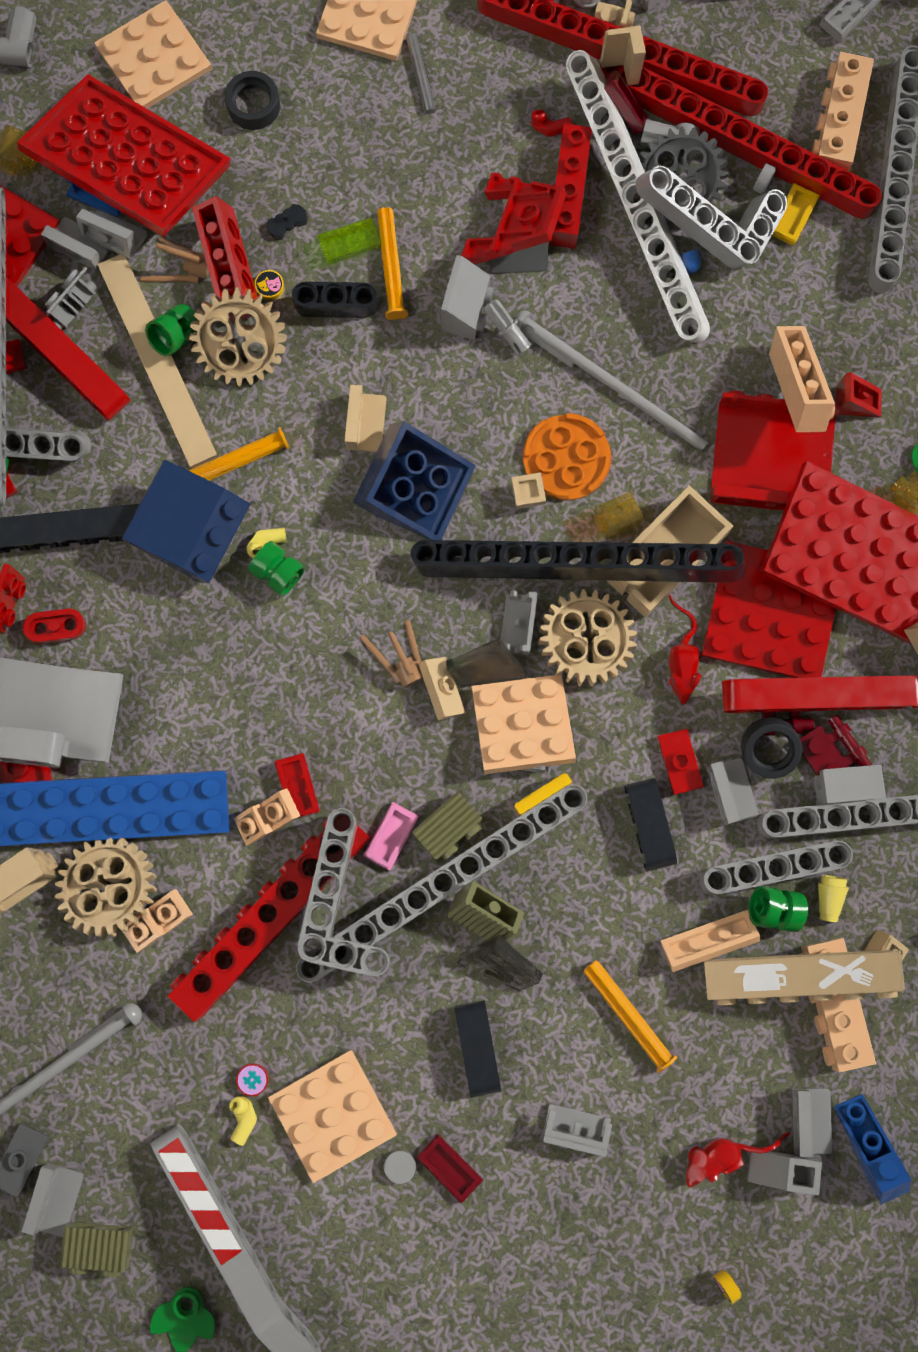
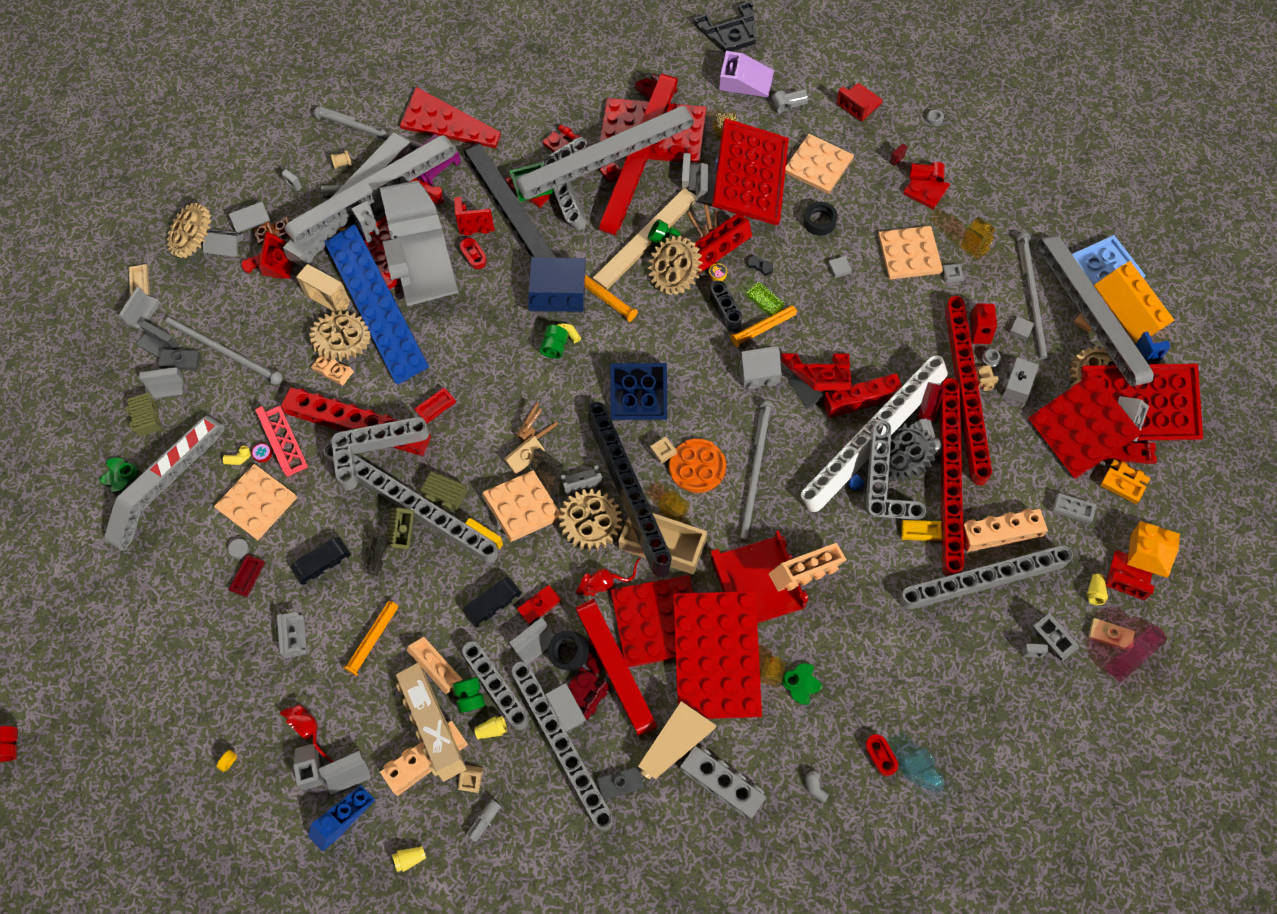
camera: 70 degrees right, 15 degrees down
(73, 284) = (663, 178): light grey hinge -> none
(248, 1052) = (275, 443): none -> coral fence
(266, 817) = (410, 397): light nougat slope -> none
(345, 115) = (839, 267): none -> light grey tile
(364, 420) = (663, 349): tan panel -> none
(391, 836) = (424, 464): bright pink tile -> none
(420, 74) = (887, 293): flat silver bar -> none
(507, 327) = (756, 398): light grey axle -> none
(547, 126) = (895, 367): red arm -> none
(625, 48) = (957, 380): tan panel -> none
(764, 179) = (933, 501): light grey tile -> none
(858, 397) = (821, 614): red slope -> none

